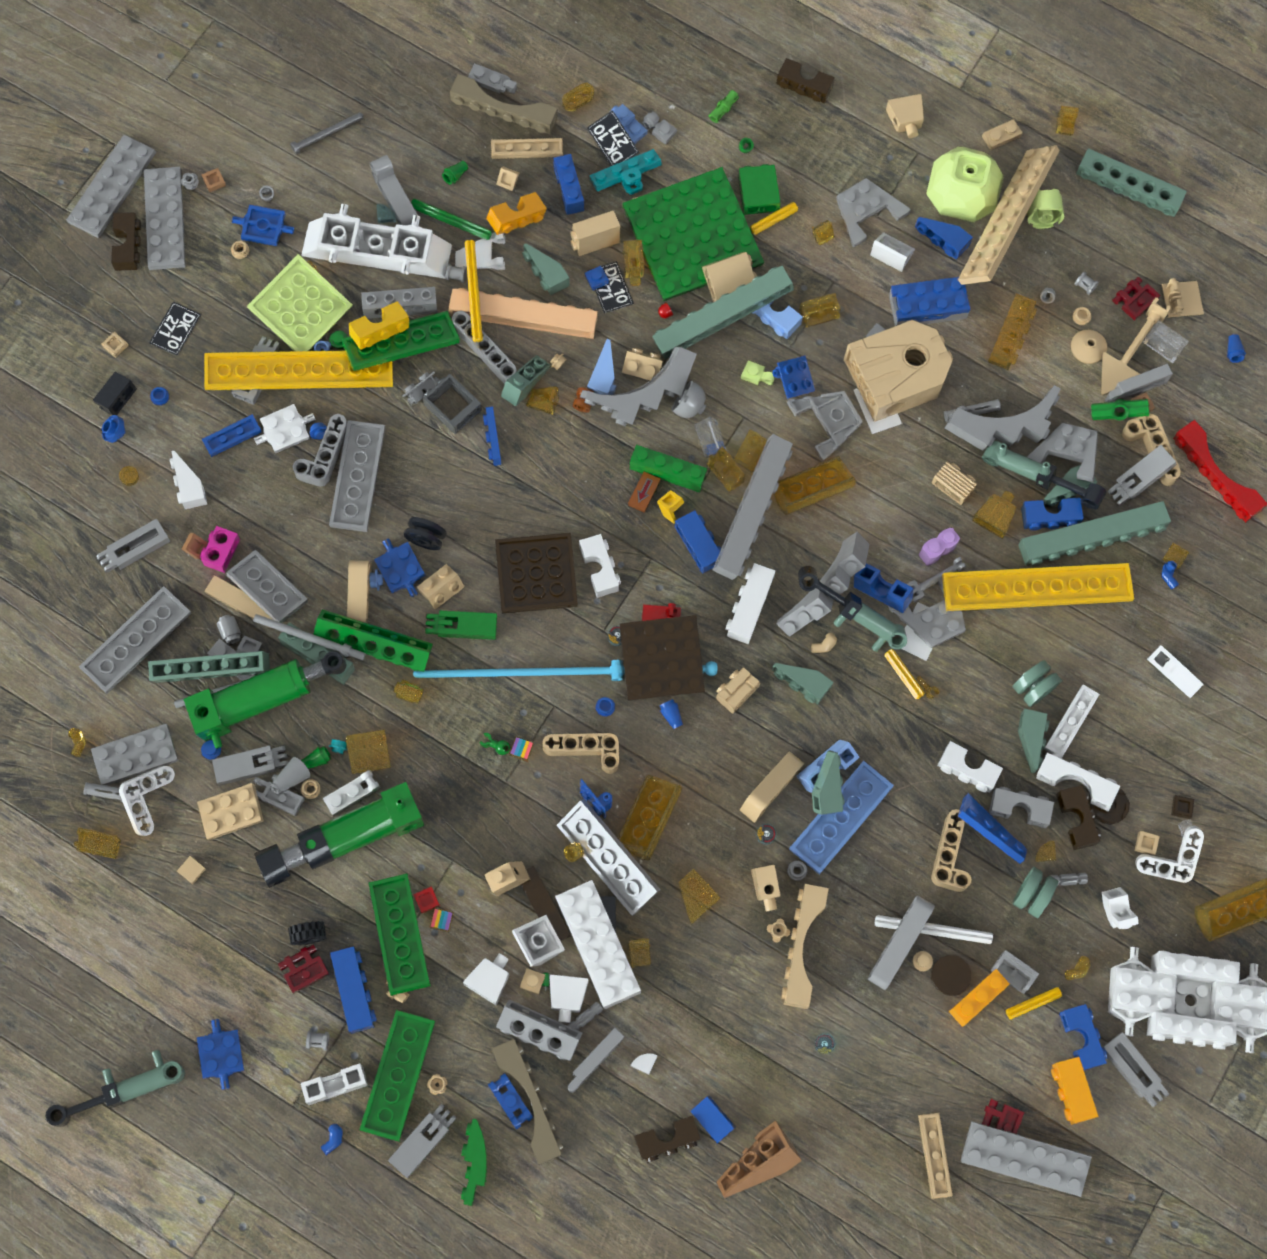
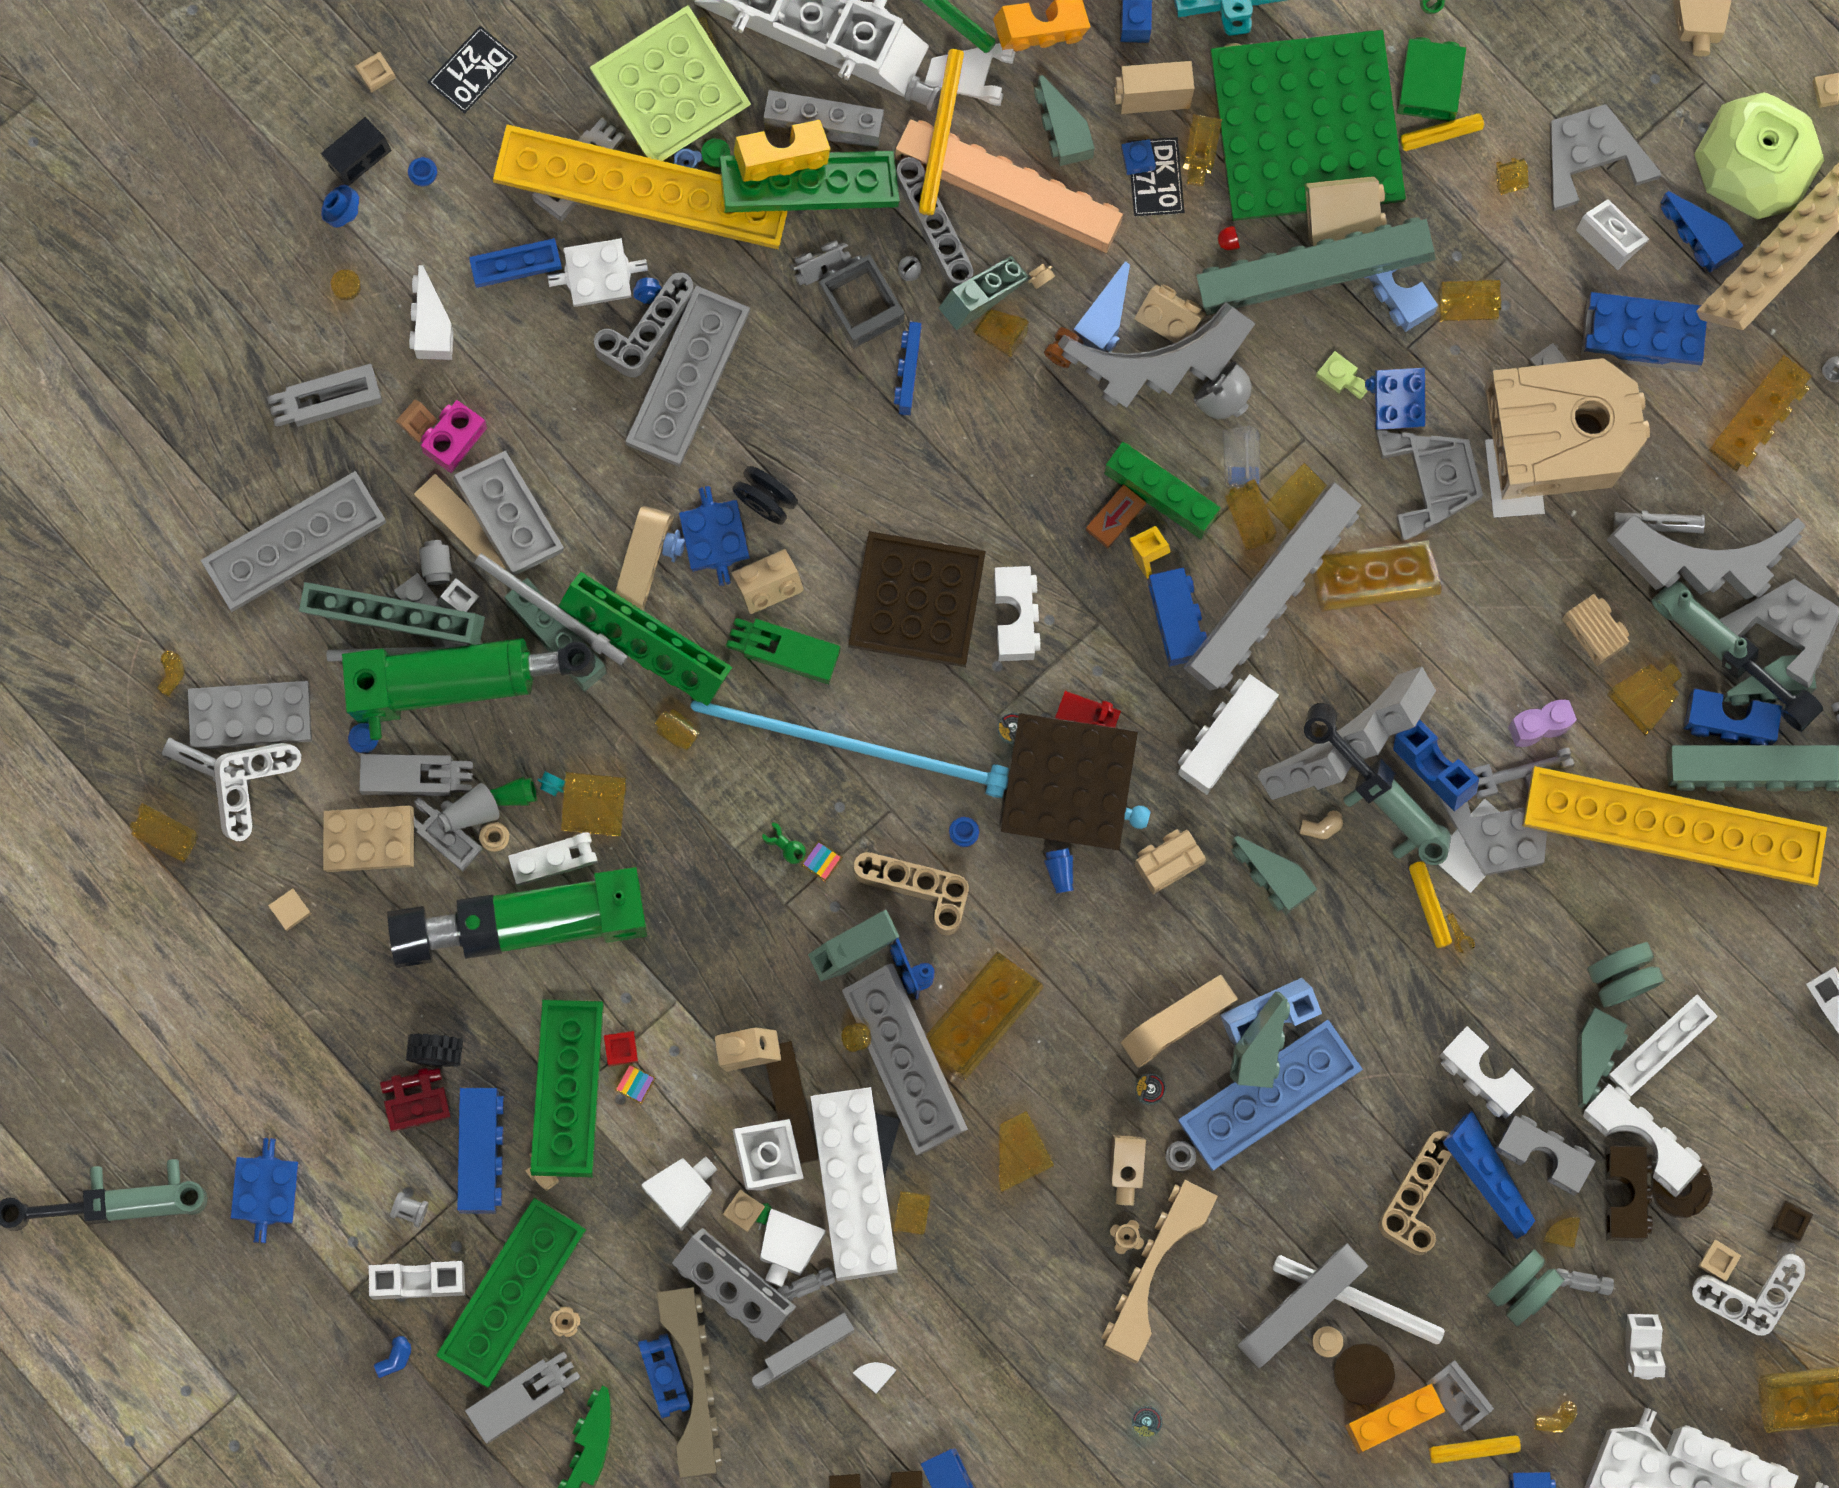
camera: 15 degrees right, 5 degrees up
(479, 379) = (913, 272): none -> light grey hinge
(556, 794) = (853, 946): none -> sand green slope

